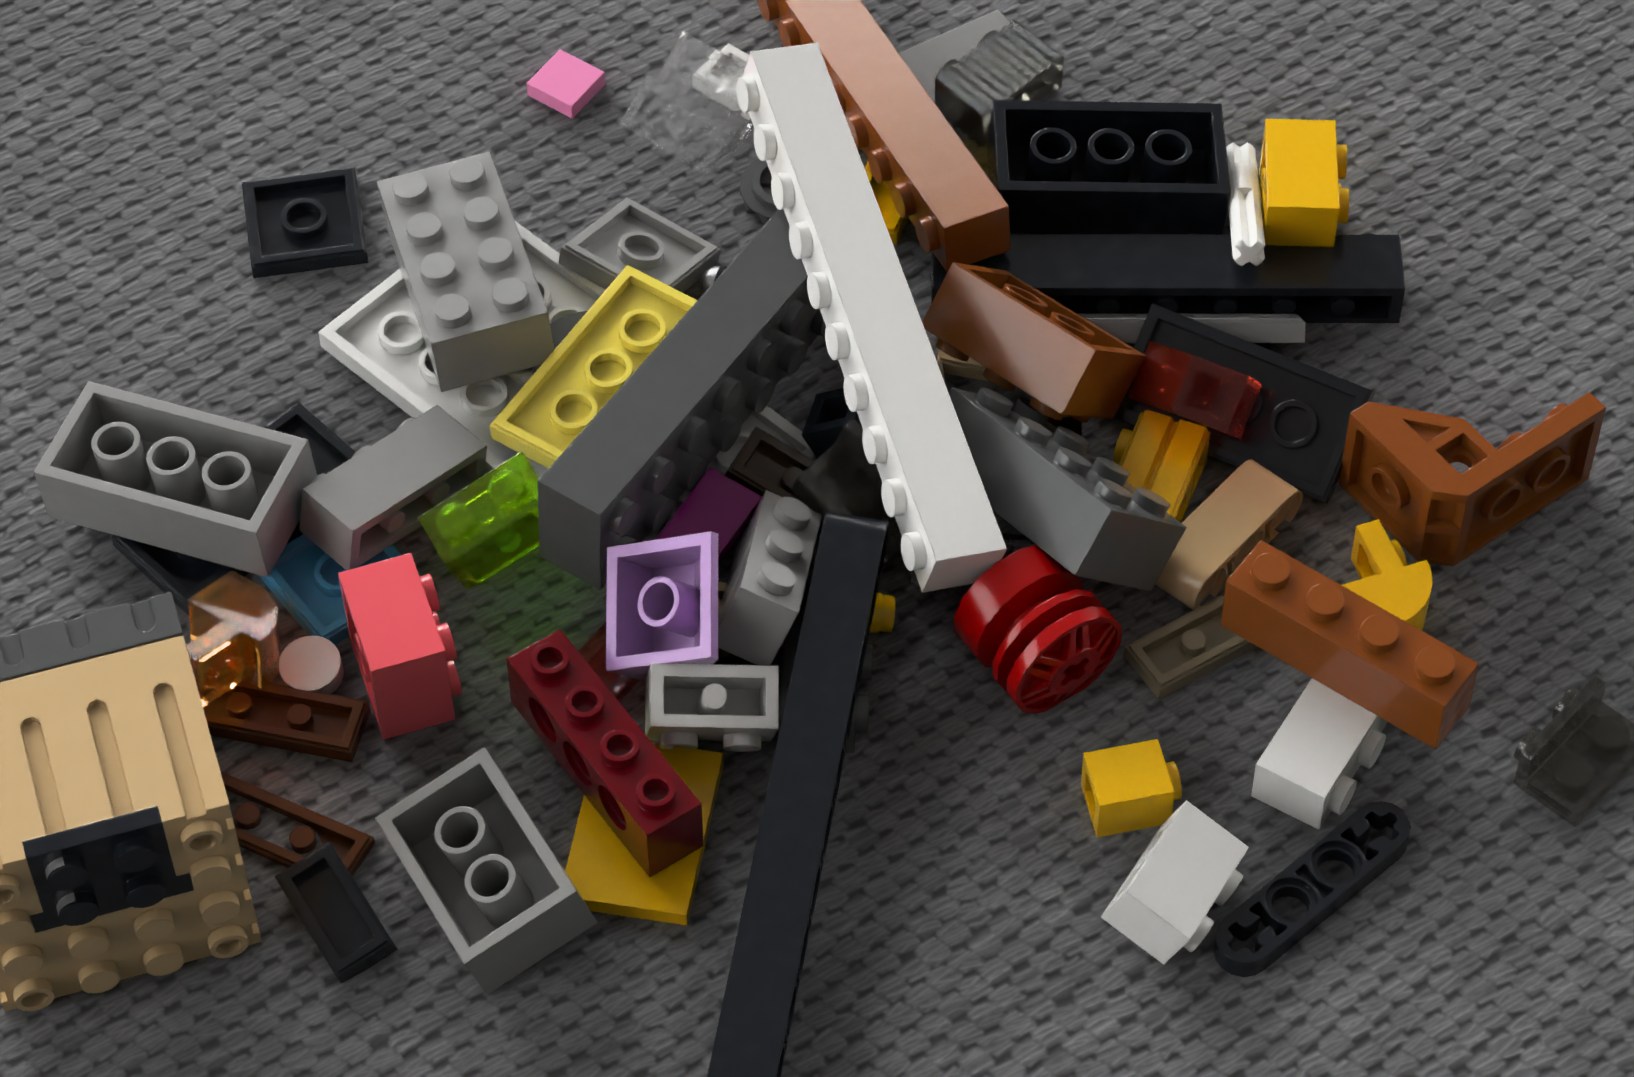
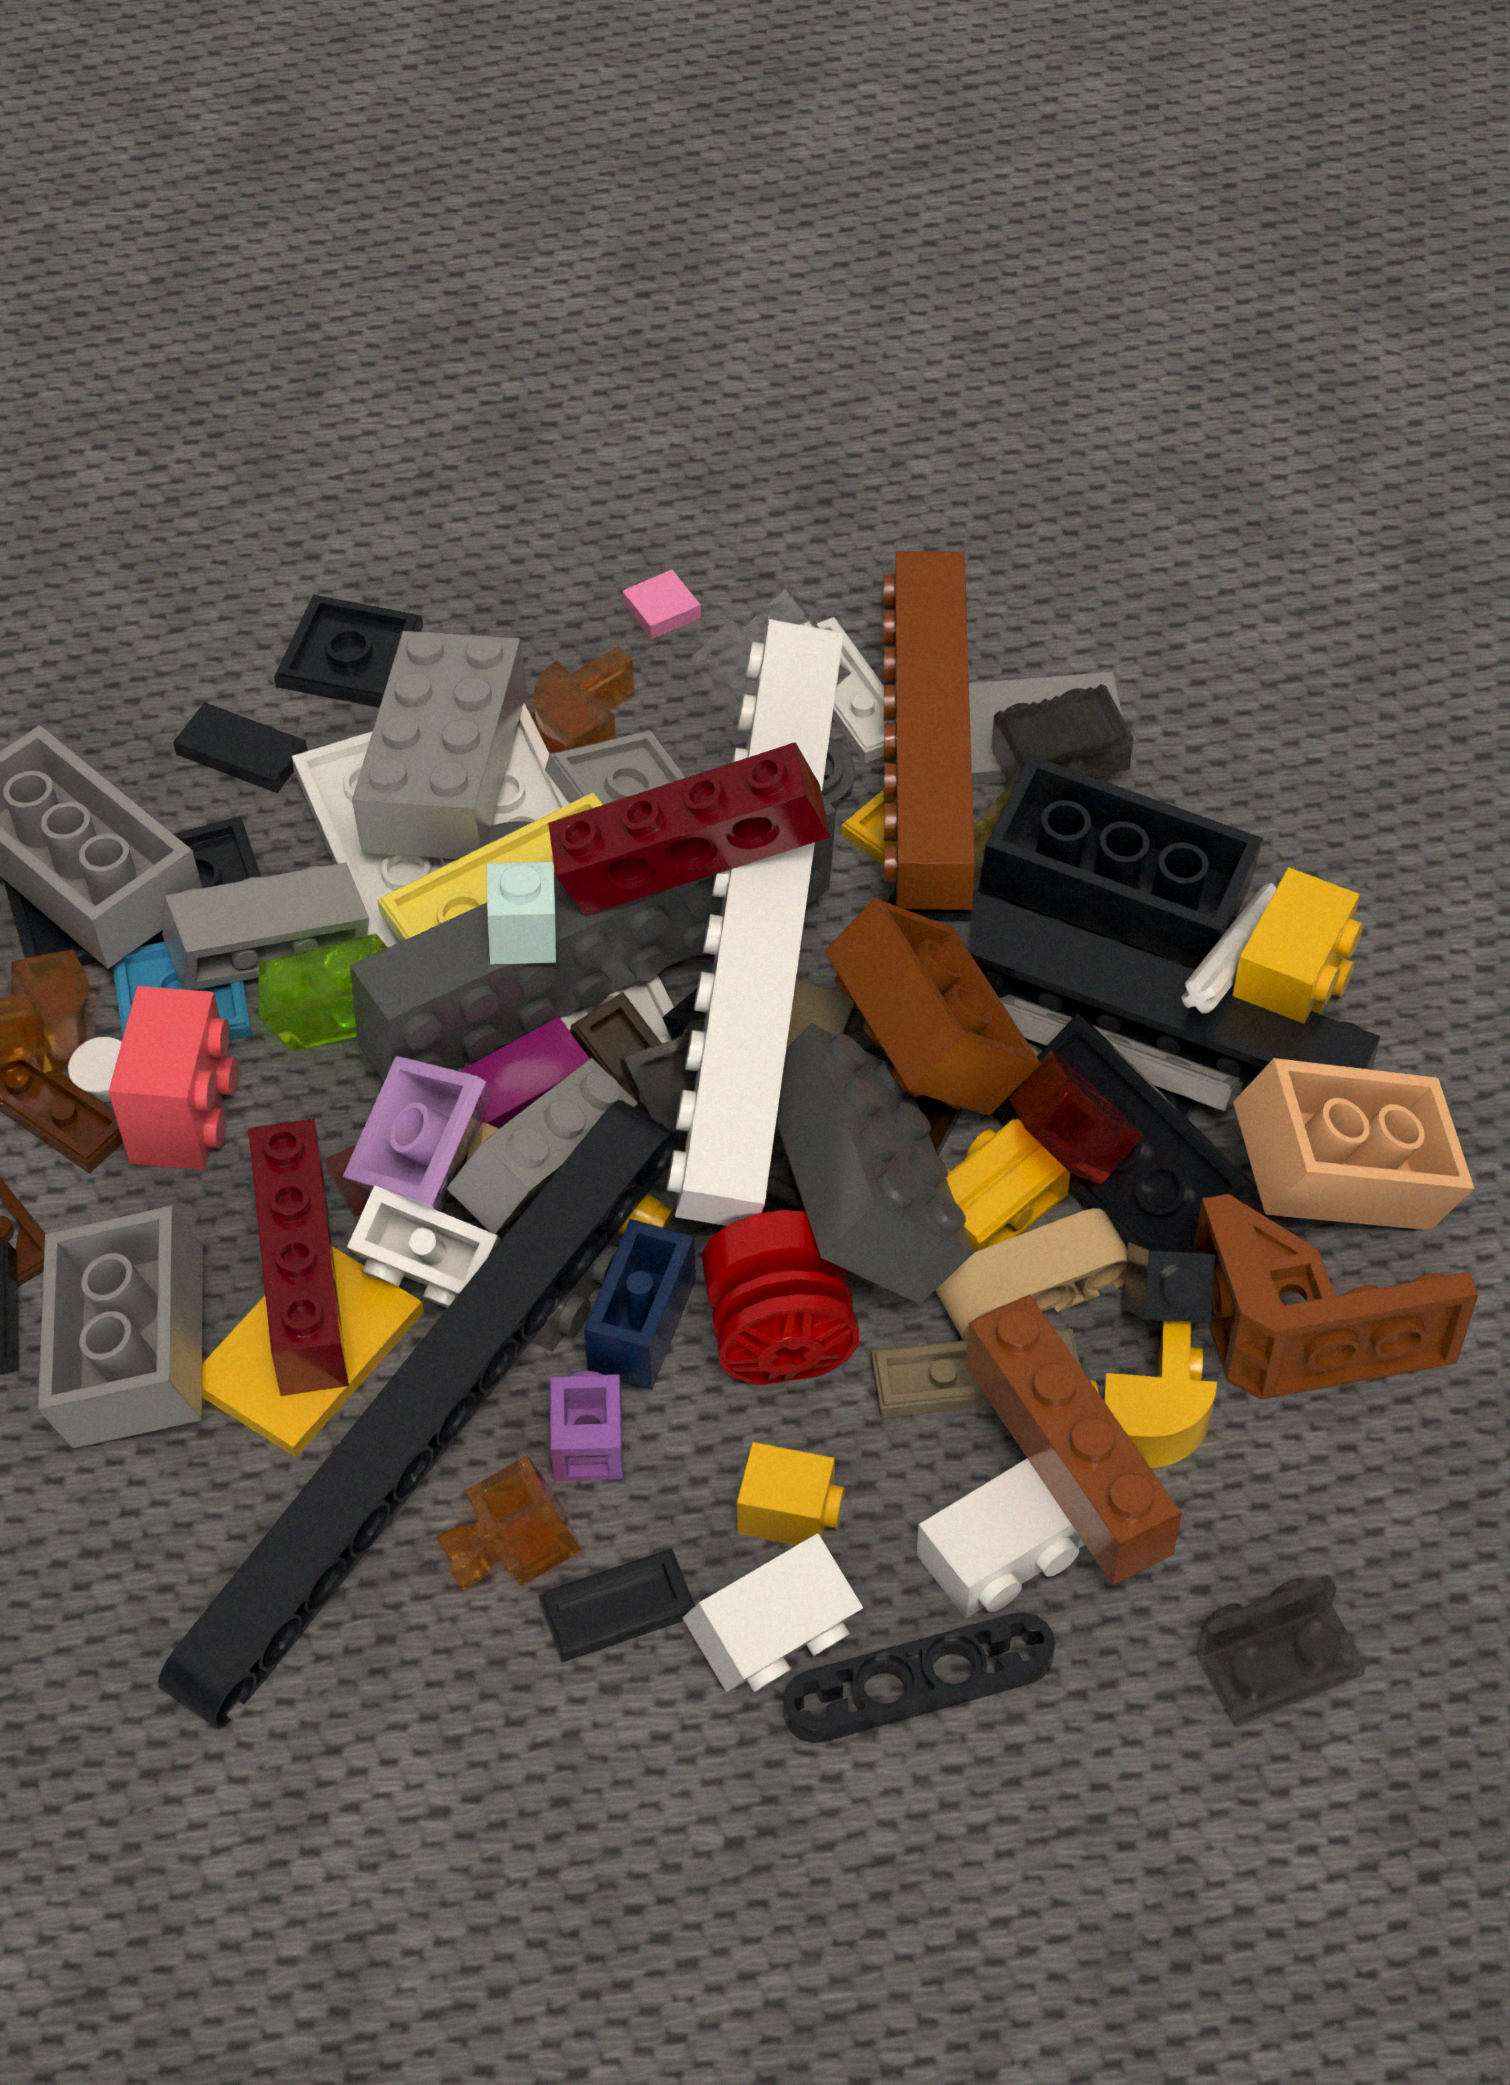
camera: 25 degrees right, 0 degrees up
(257, 342) = (239, 747): none -> black tile
(550, 197) = (577, 706): none -> clear orange brick
(672, 379) = (521, 912): none -> light aqua brick
(787, 254) = (688, 829): none -> dark red brick
(920, 680) = (640, 1303): none -> dark blue brick
(925, 897) = (516, 1524): none -> clear orange brick
(930, 798) = (586, 1427): none -> medium lavender brick
(1034, 932) = (616, 1605): none -> black tile
(1345, 494) = (1169, 1282): none -> black brick
(1430, 330) = (1352, 1145): none -> light nougat brick

